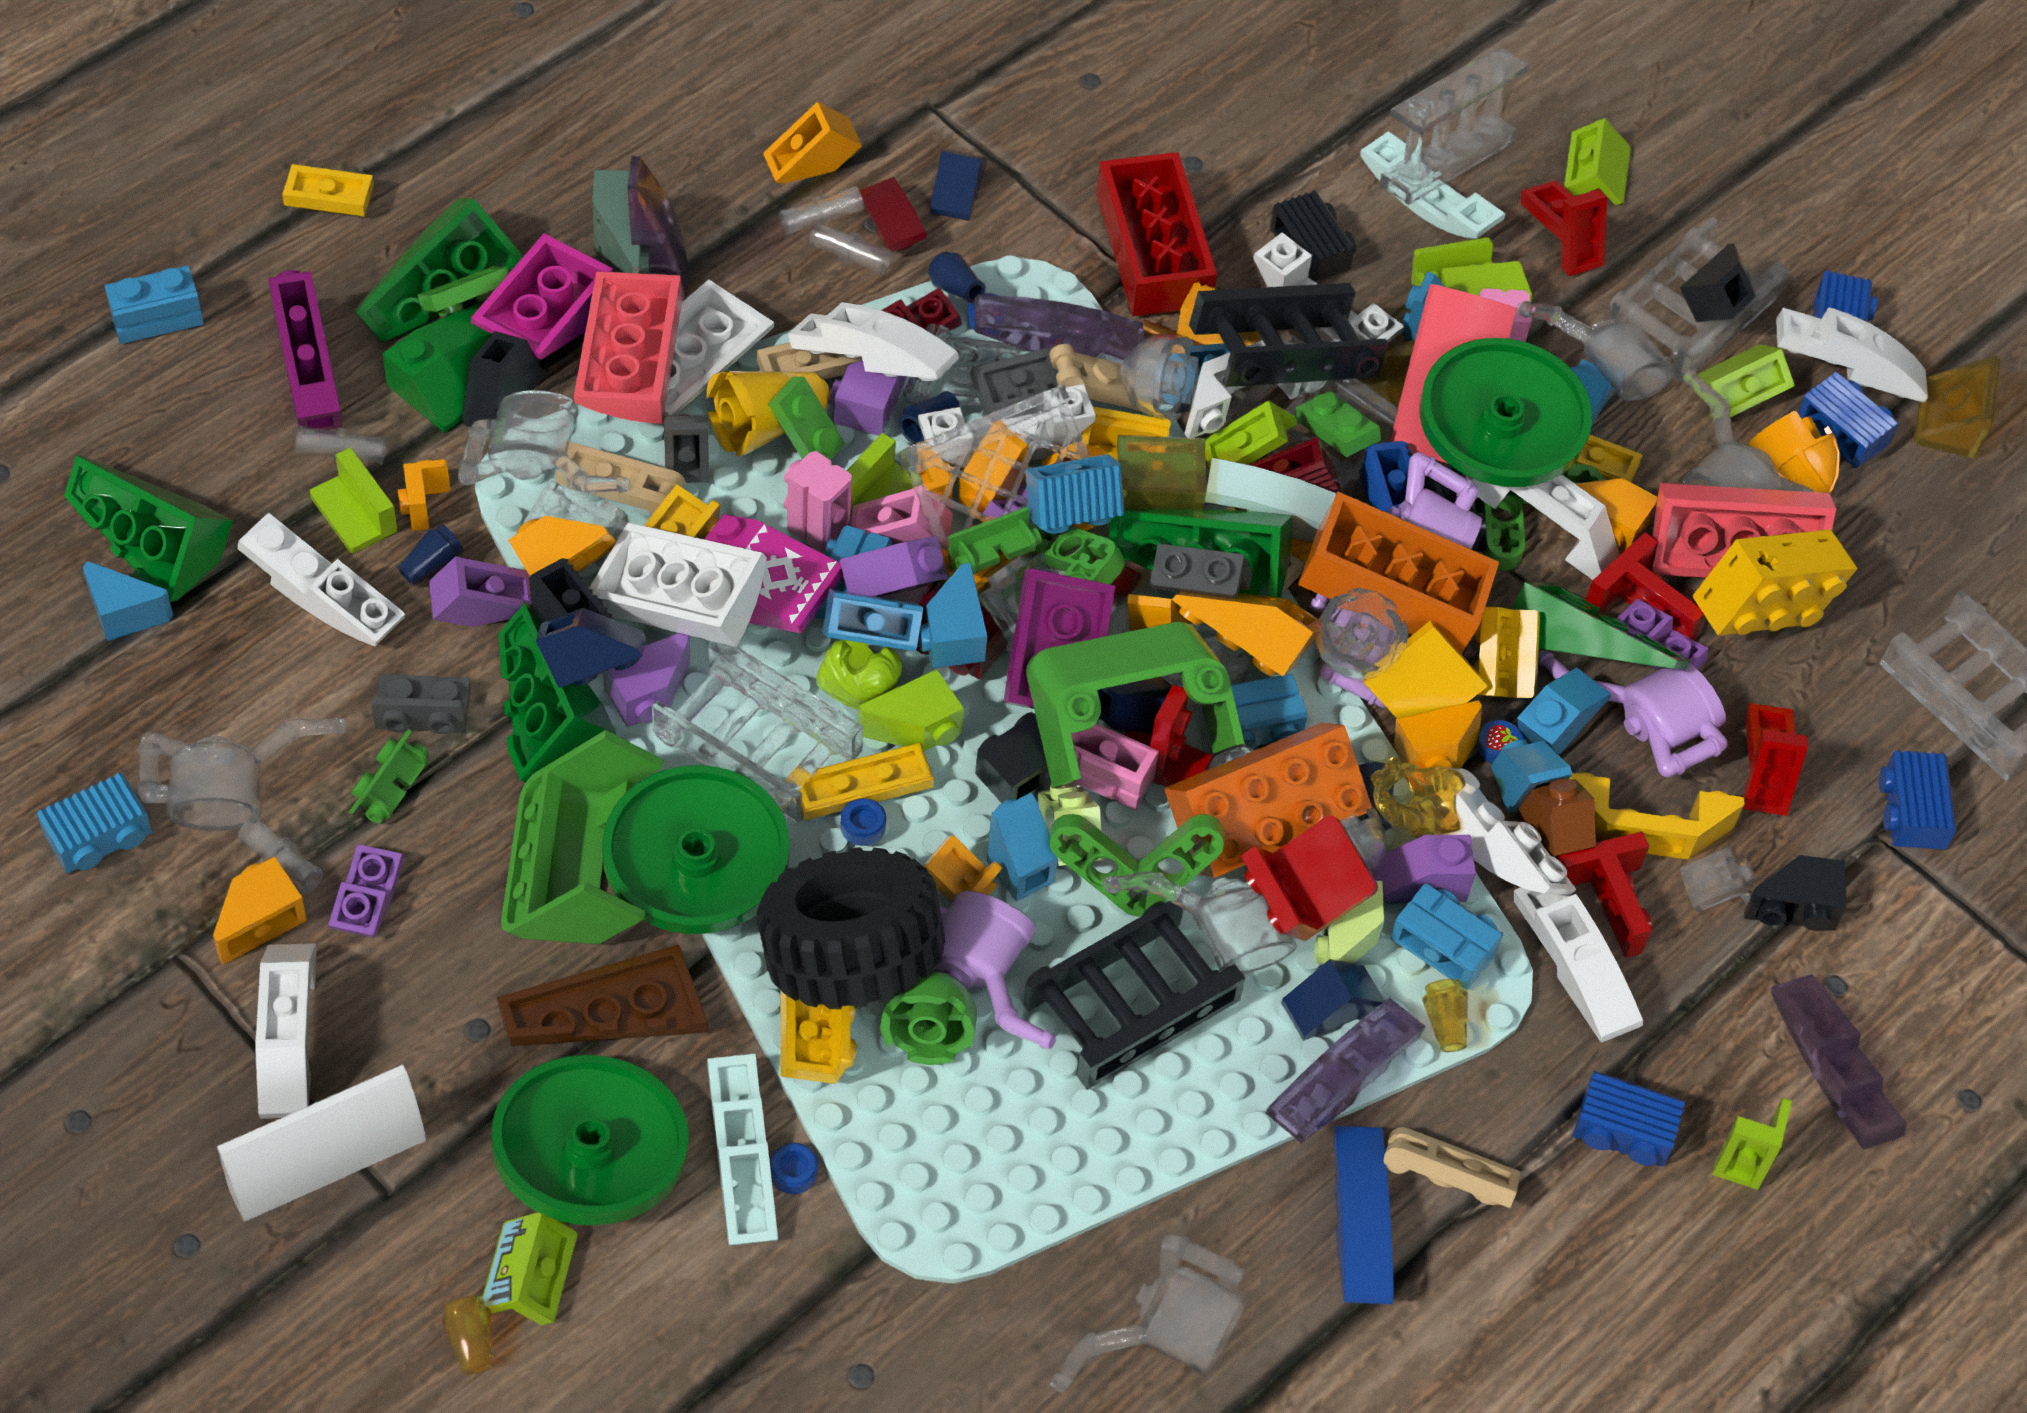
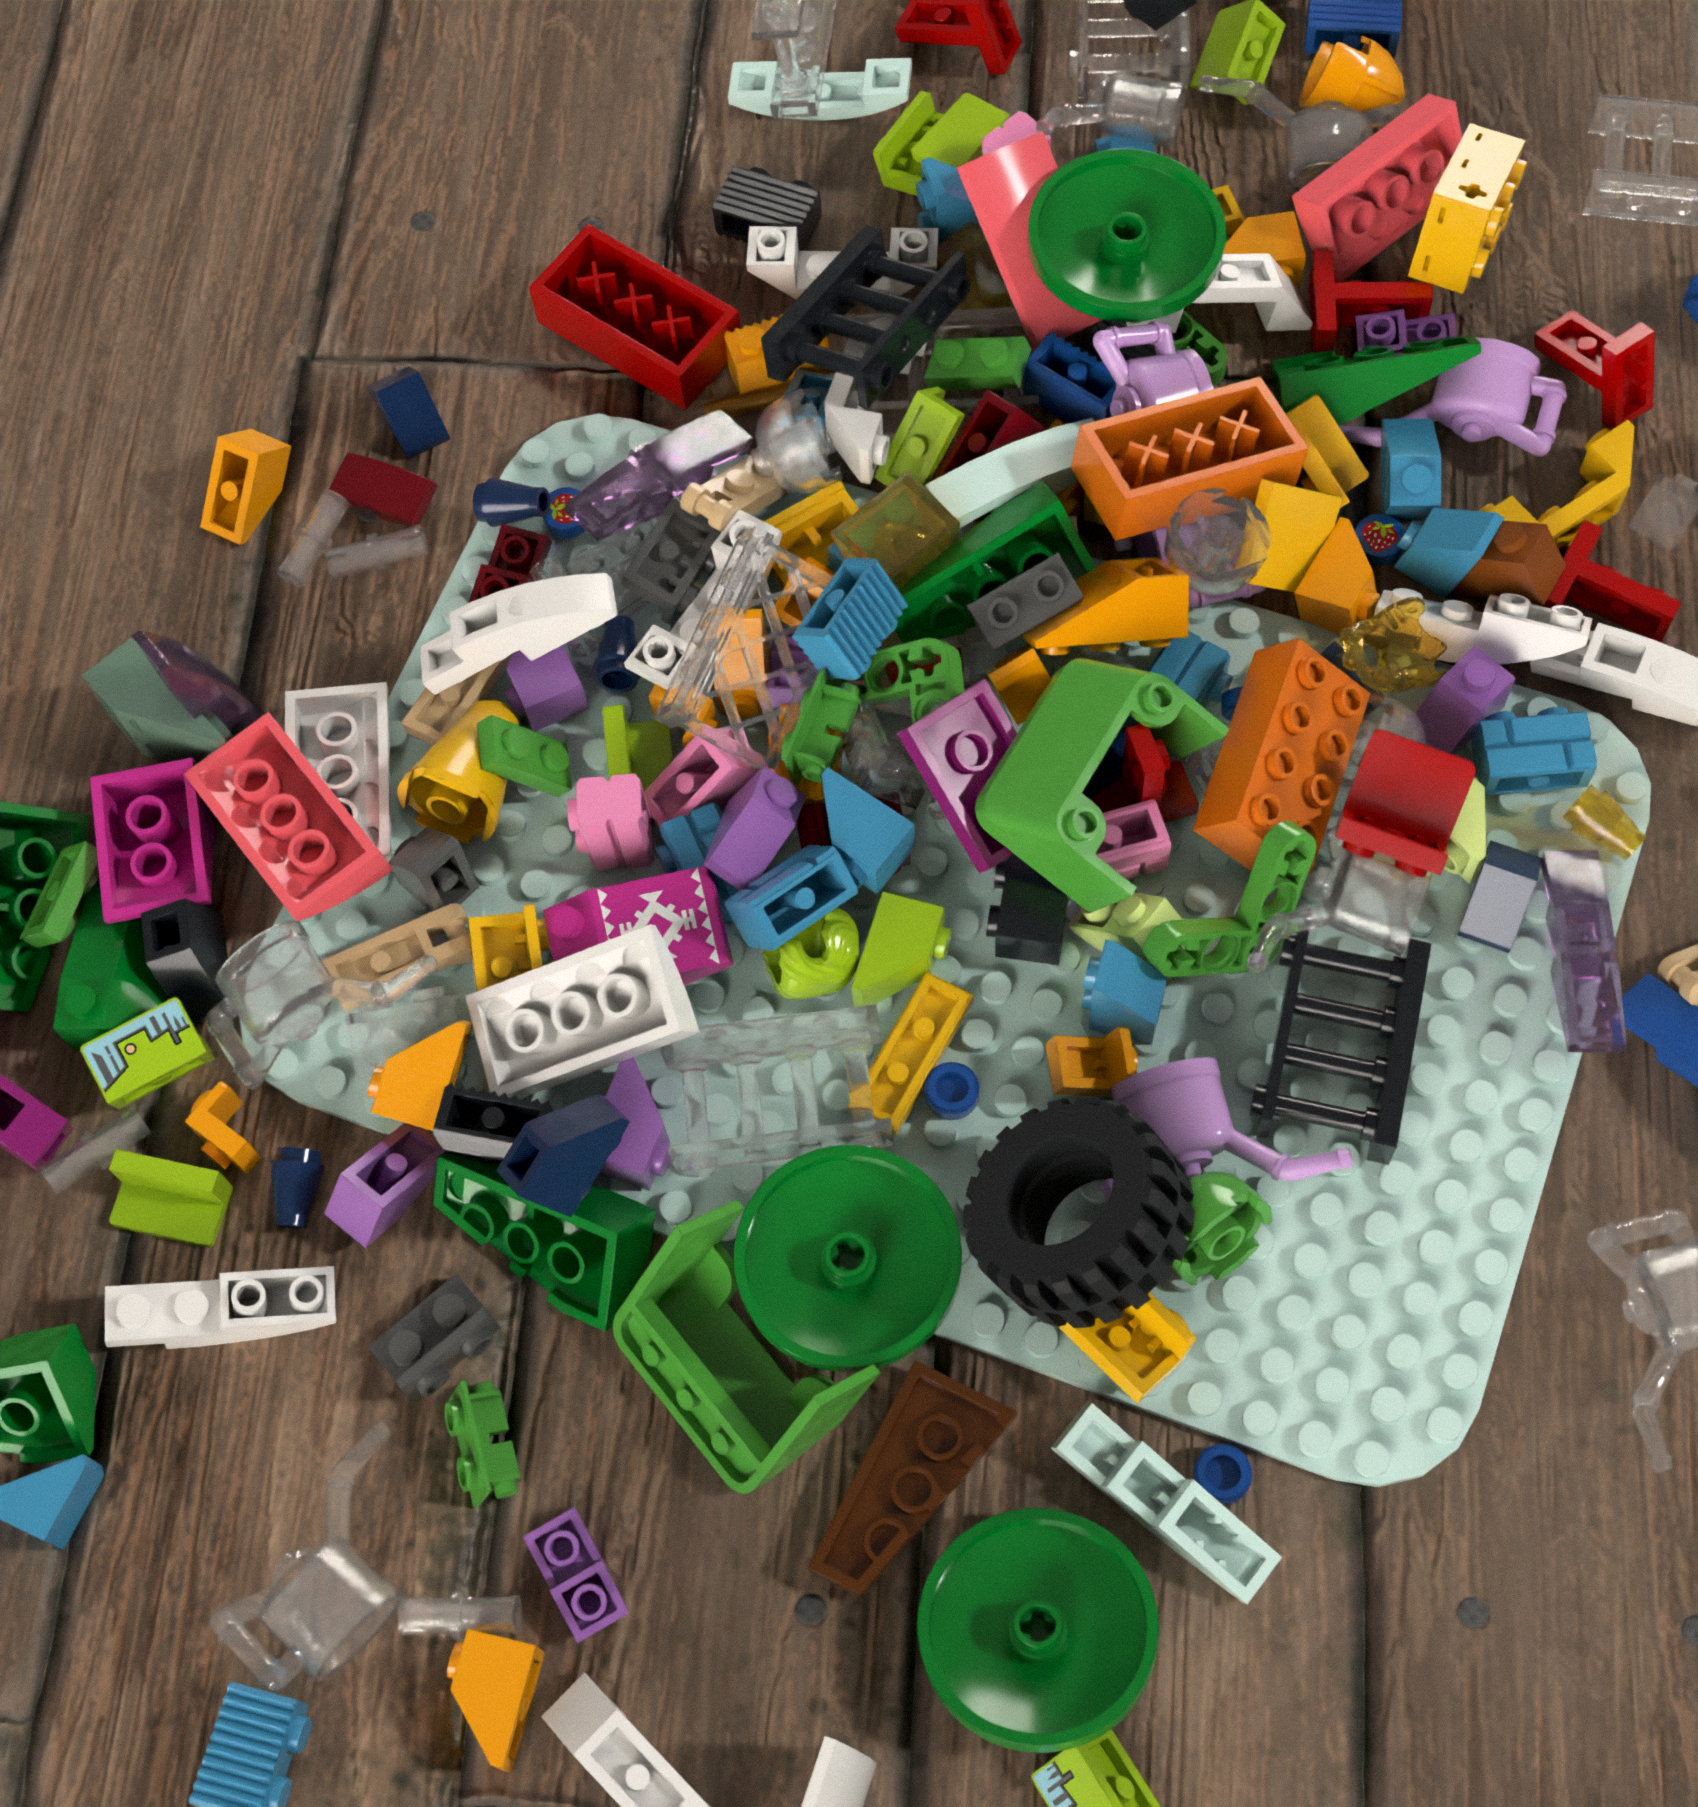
camera: 30 degrees left, 10 degrees up
(420, 414) = (146, 1053): none -> lime panel

